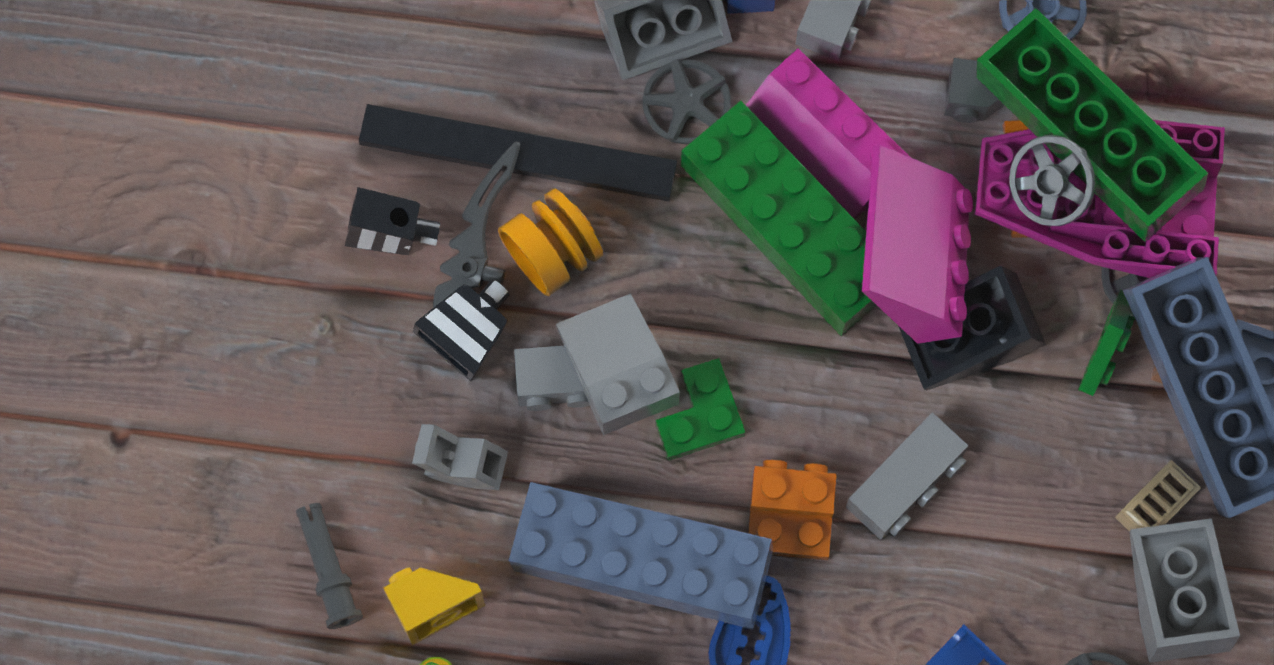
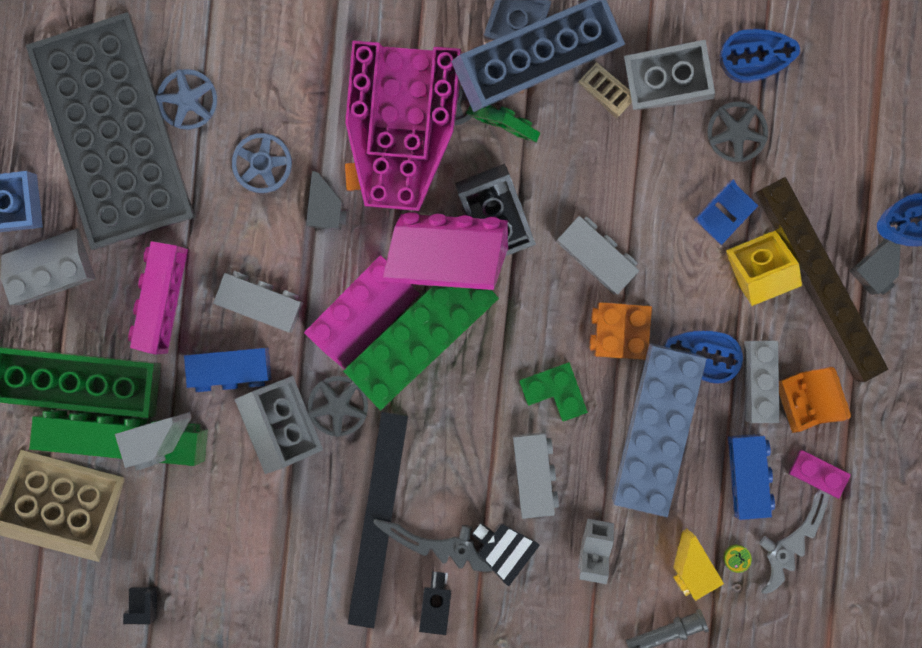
camera: 85 degrees left, 15 degrees up
(557, 237) = (447, 497): light orange wheel -> none
(618, 364) = (532, 450): light grey slope -> none
(1052, 180) = (401, 158): wheel -> none
(1066, 95) = (359, 132): green brick -> none

